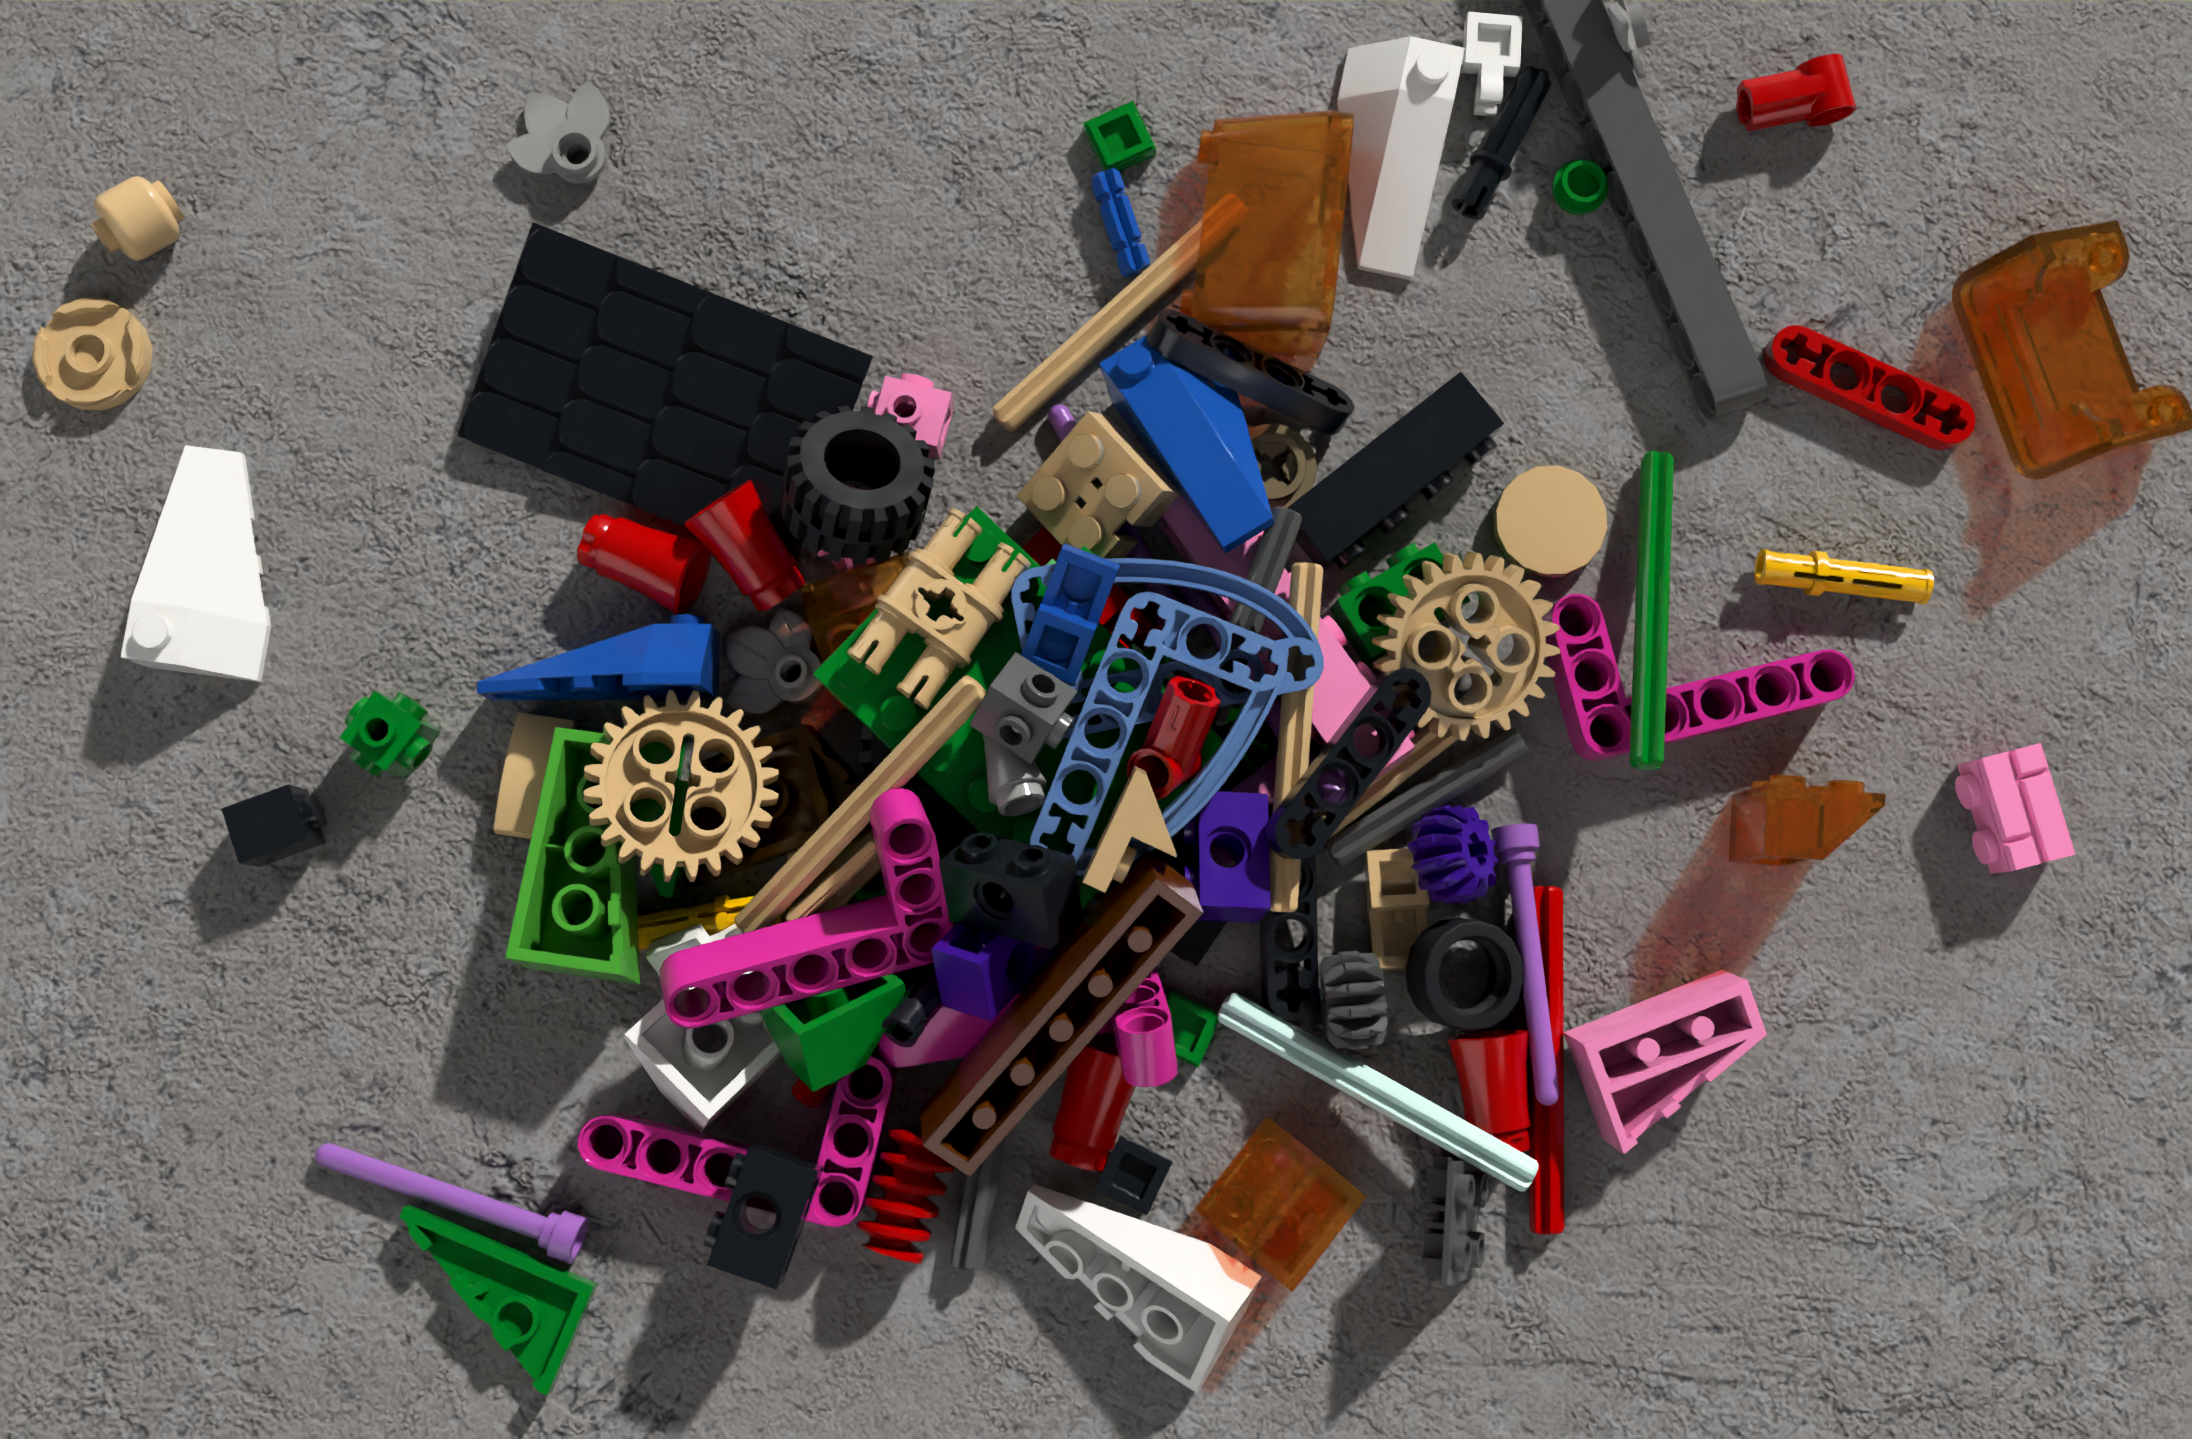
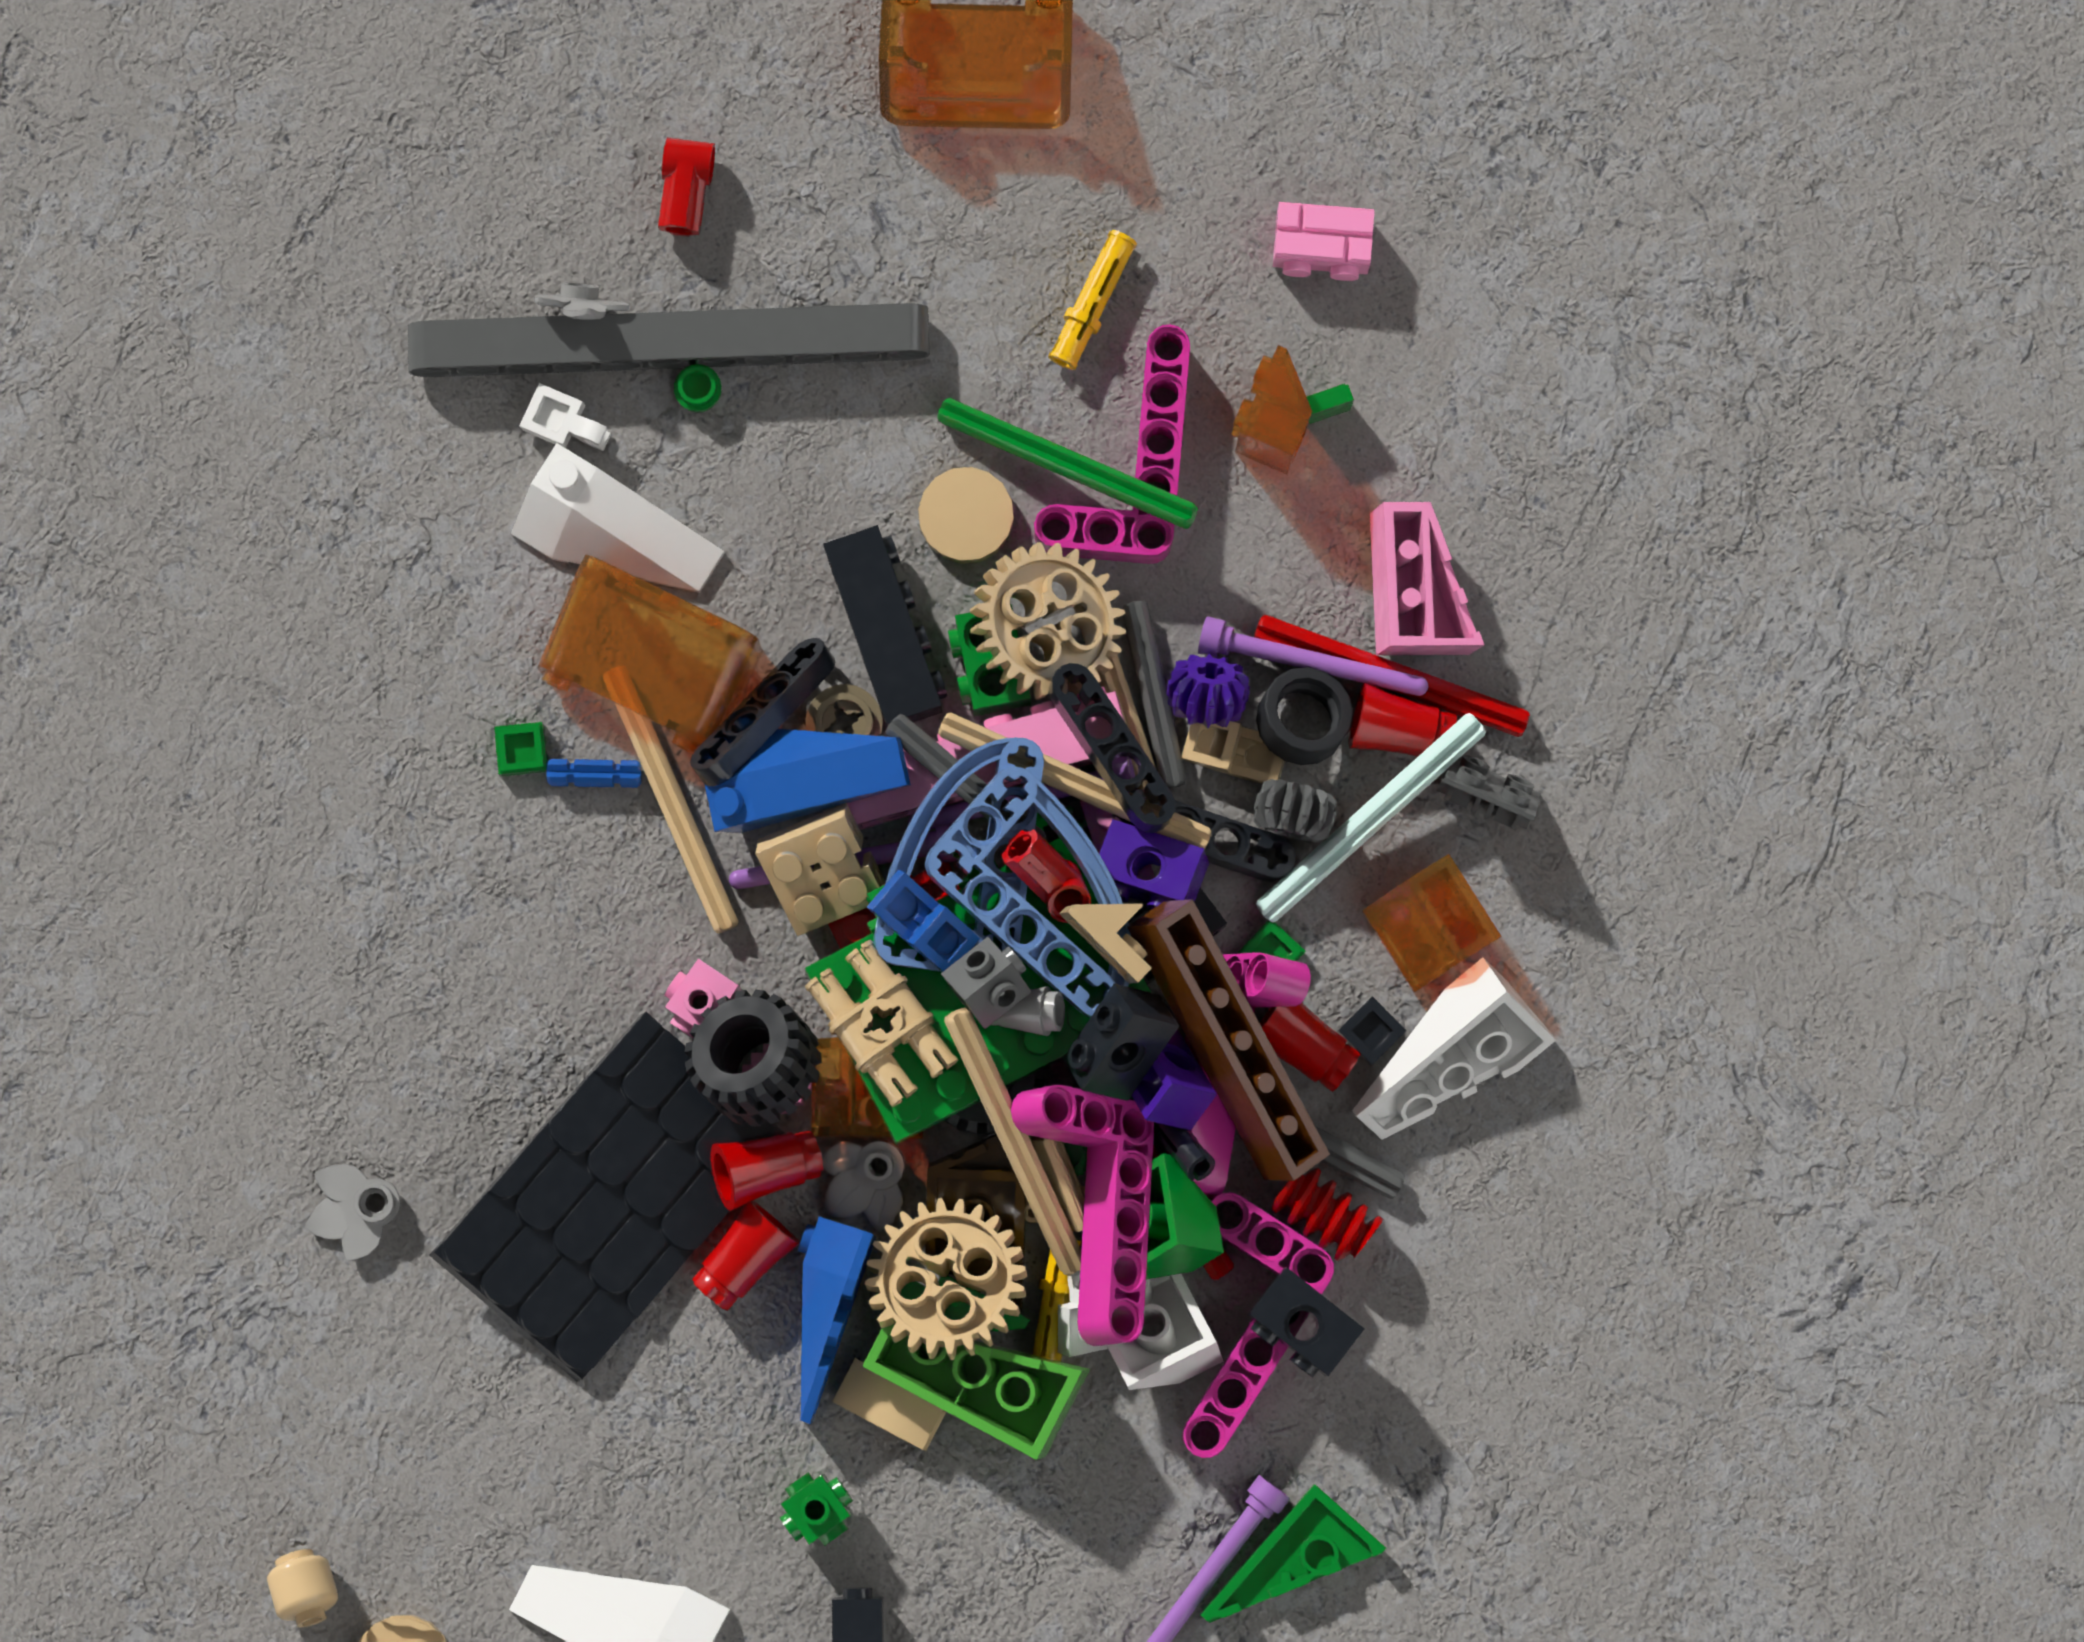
camera: 65 degrees left, 0 degrees up
(1493, 161) = (638, 437): black axle -> none
(1831, 881) = (1330, 402): none -> green tile
(1871, 379) = (951, 224): red beam -> none

